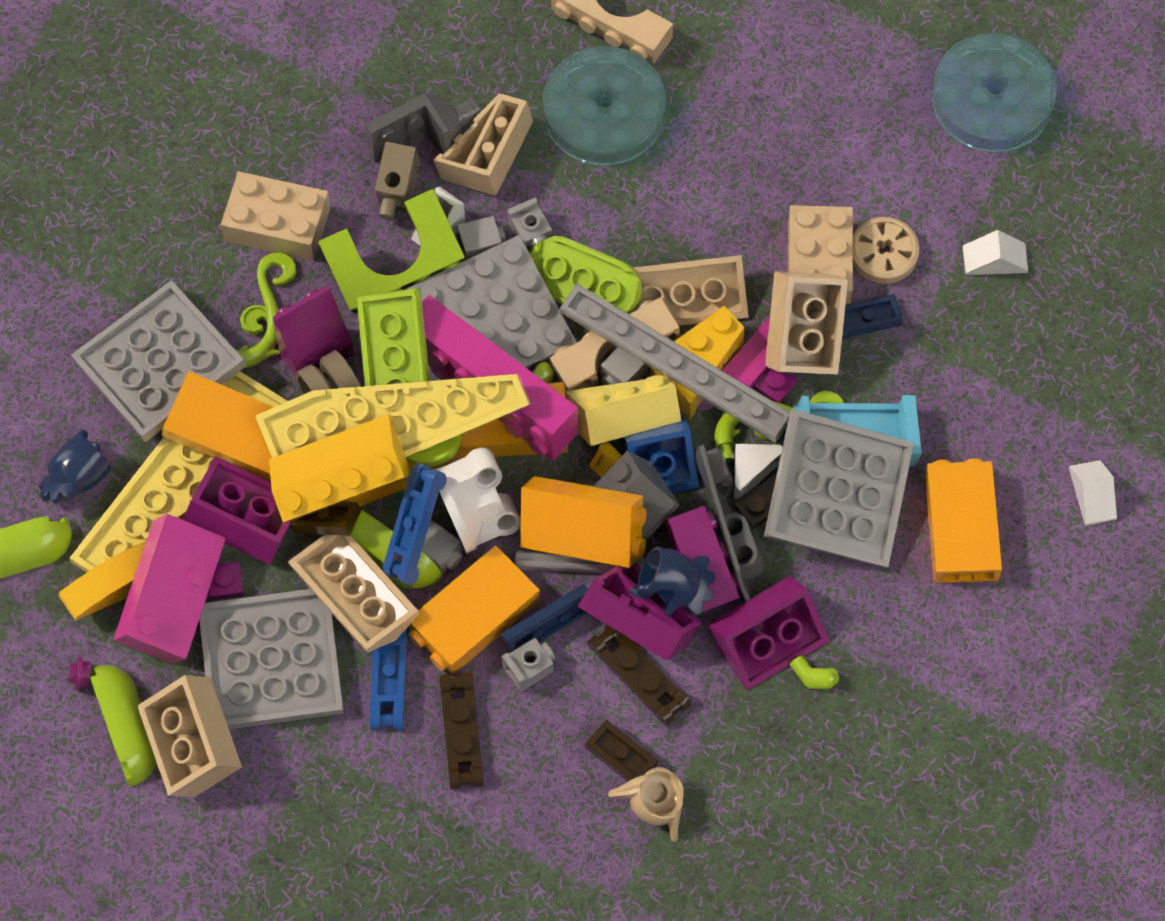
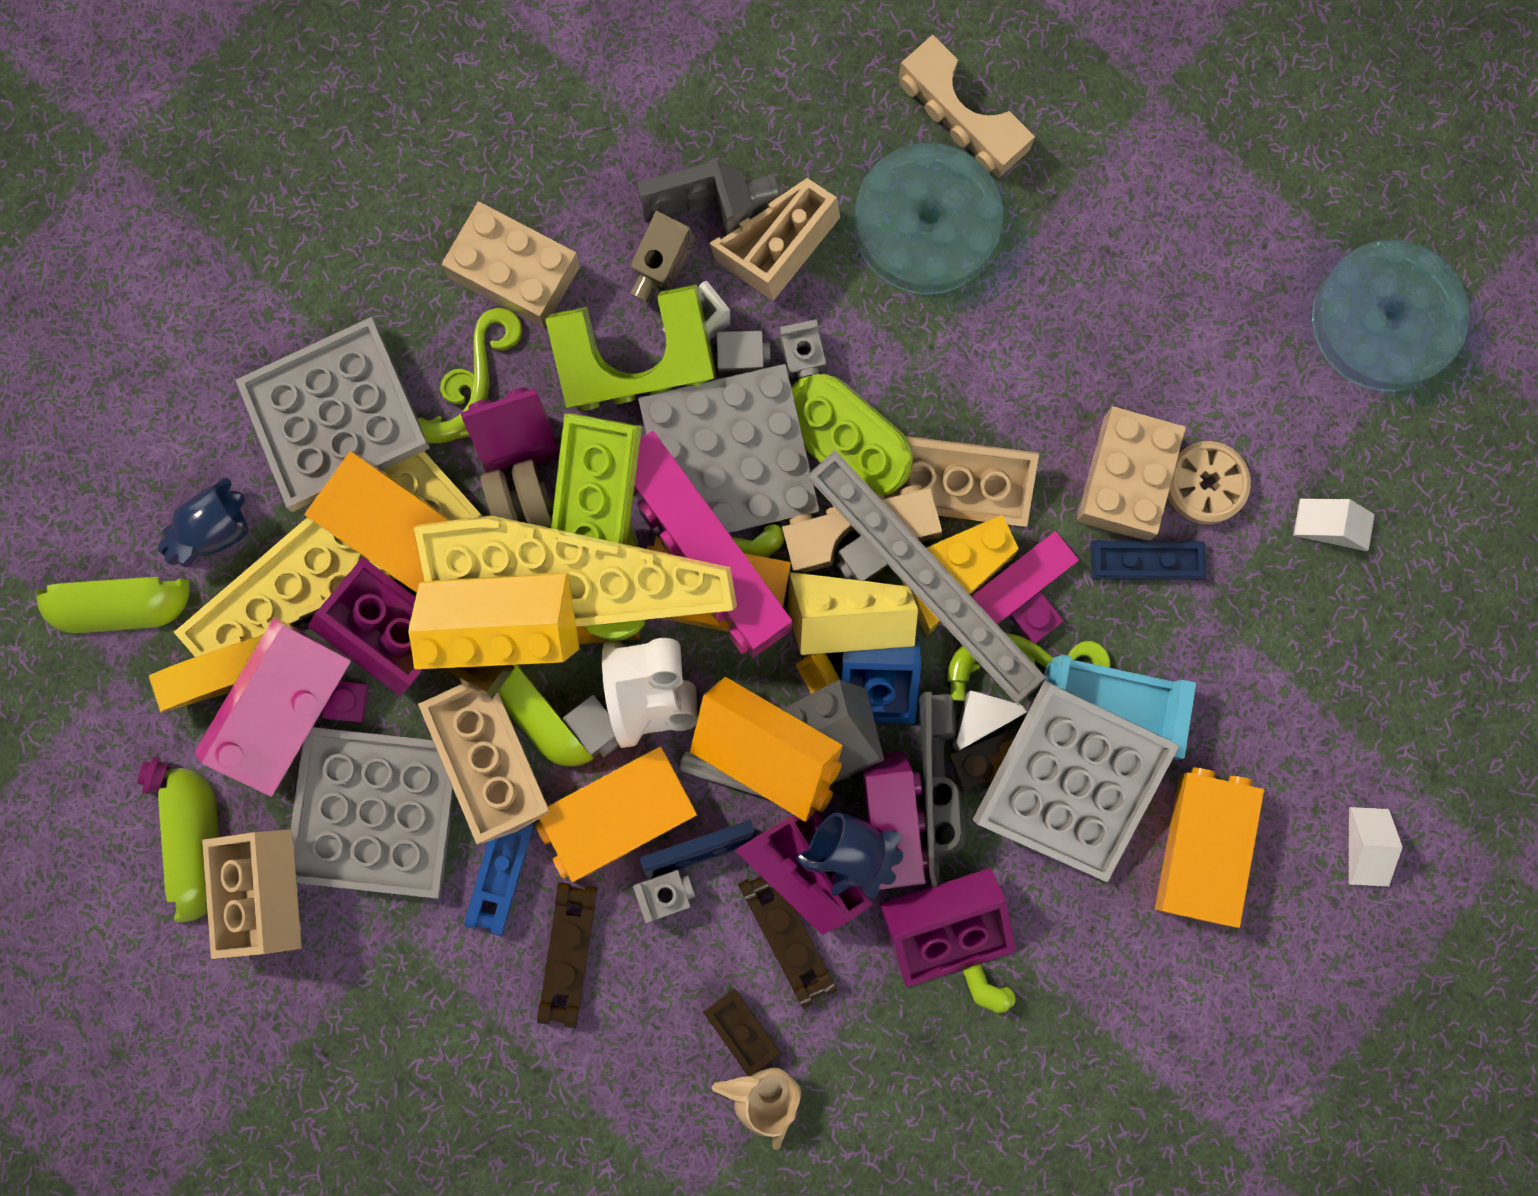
camera: 10 degrees right, 15 degrees up
(413, 523) = (566, 707): blue plate -> none
(806, 322) = (1093, 564): tan brick -> none

